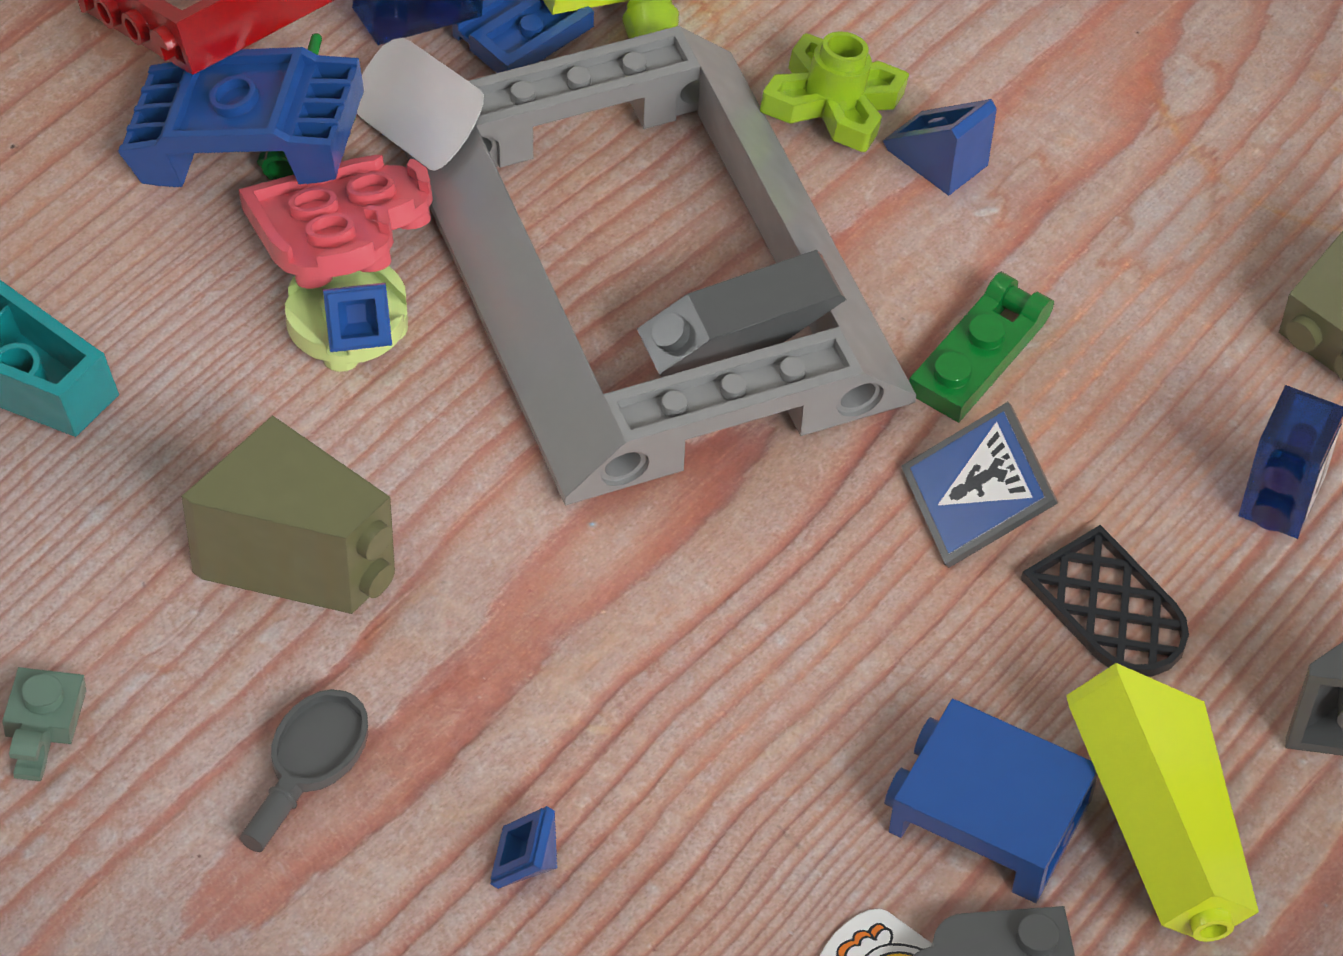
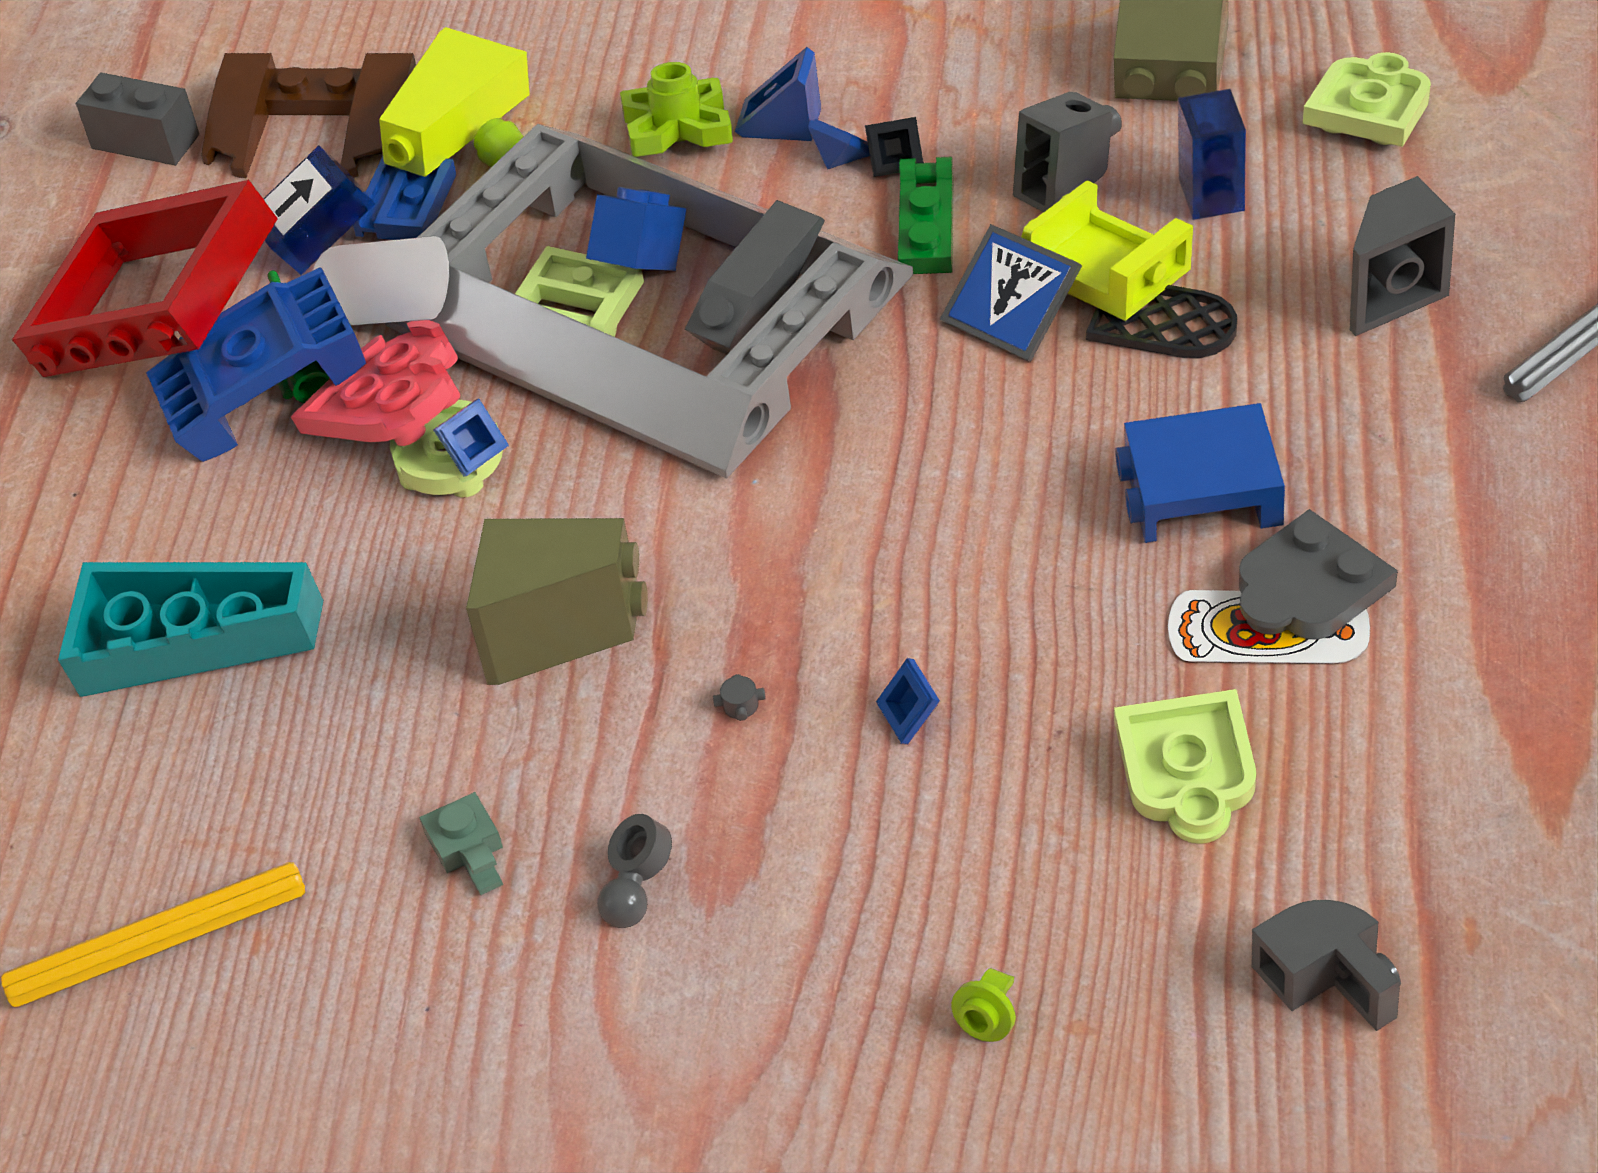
camera: 25 degrees left, 5 degrees down
(163, 835) = (638, 852): none -> dark grey plate
(308, 753) = (694, 737): dark grey piece -> none
(388, 738) = (739, 697): none -> dark grey piece
(602, 214) = (582, 283): none -> yellowish green plate
(677, 197) = (636, 230): none -> blue brick
(962, 215) = (836, 145): none -> blue slope
(1010, 250) = (891, 142): none -> black slope
(1110, 501) = (1119, 261): none -> neon yellow panel
(1159, 361) = (1061, 147): none -> dark grey torso
(1168, 798) = (1323, 398): neon yellow slope -> none

